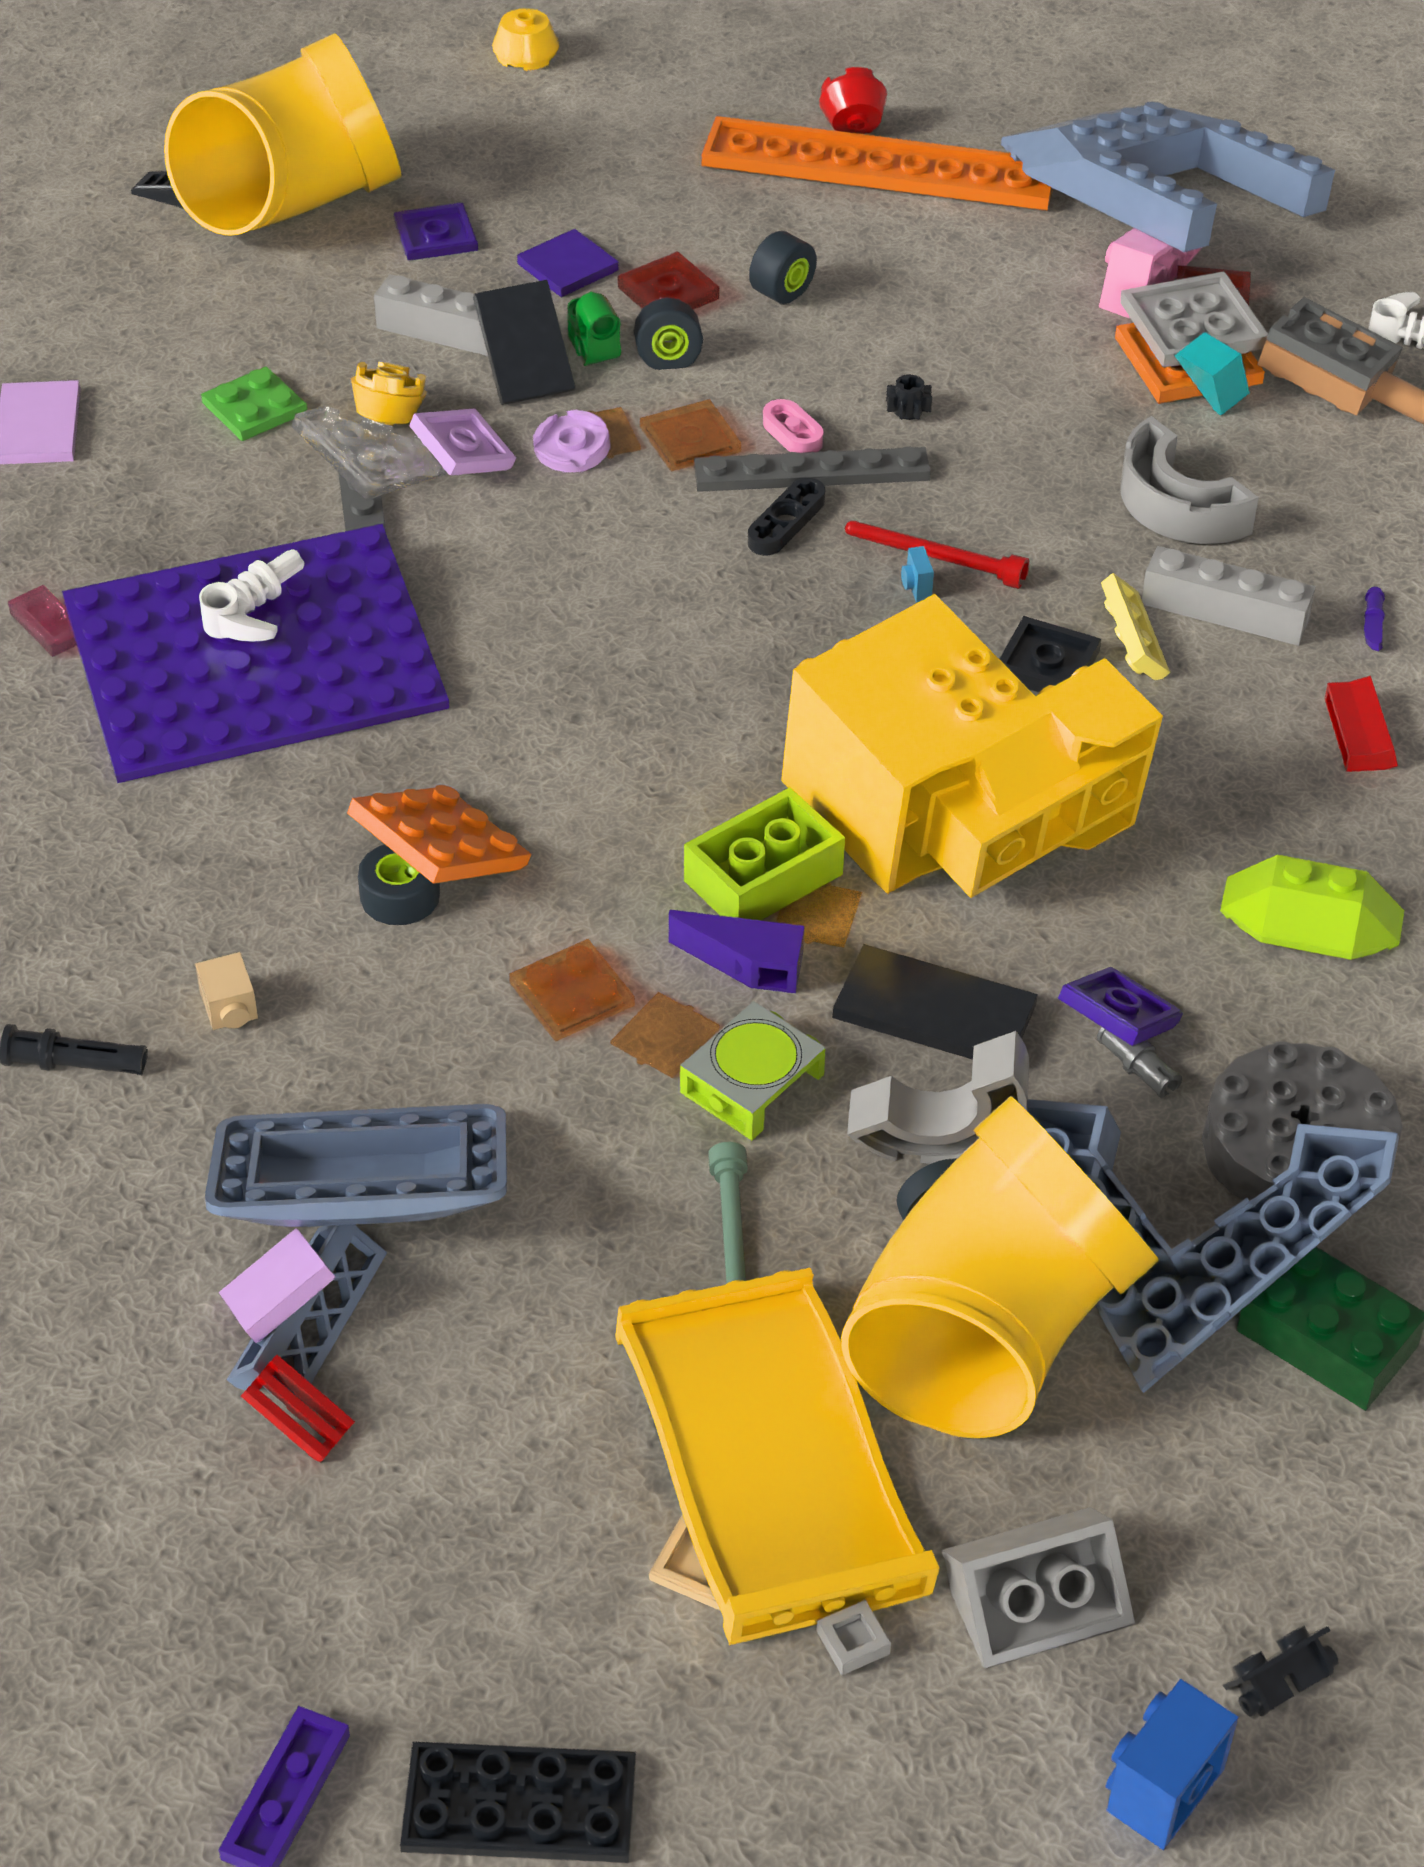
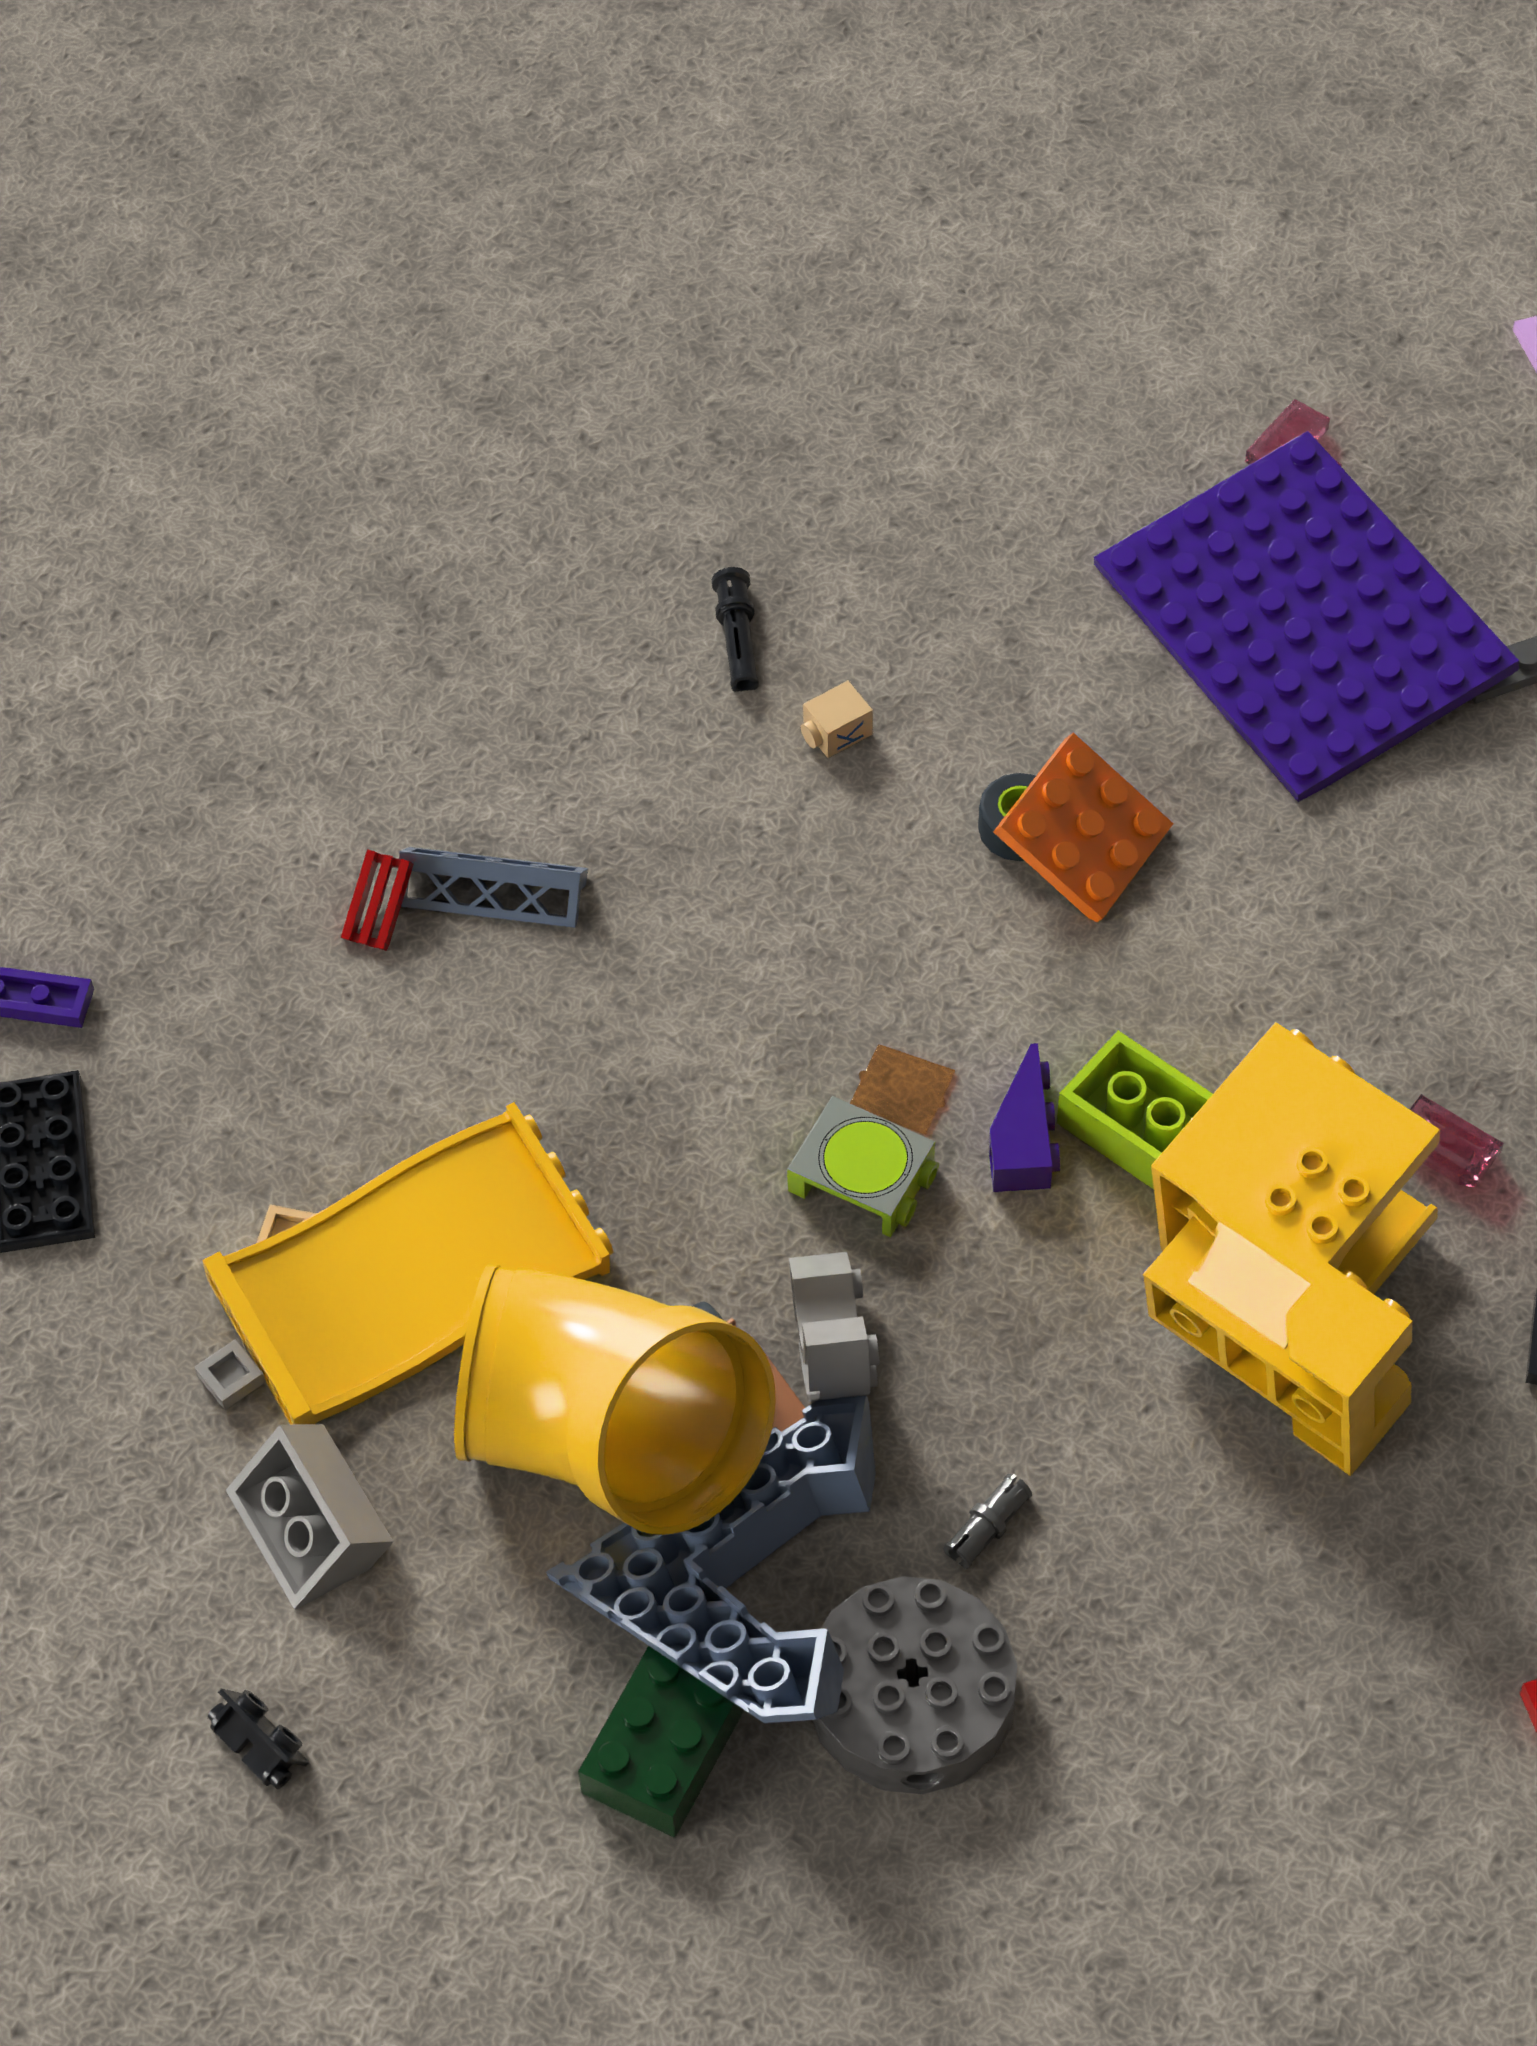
camera: 80 degrees right, 10 degrees up
(226, 604) = (1339, 568): white piece -> none
(276, 1285) = (494, 845): lavender tile -> none
(358, 1165) = (638, 866): sand blue wedge -> none
(571, 989) = (933, 996): clear orange plate -> none
(728, 1166) = (739, 1174): sand green piece -> none
(824, 913) = (1107, 1194): clear orange piece -> none
(930, 1002) = (999, 1316): black tile -> none
(1120, 1005) = (1045, 1487): dark purple tile -> none
(1170, 1762) = (119, 1635): blue brick -> none
(1313, 907) = (1252, 1675): lime wedge -> none

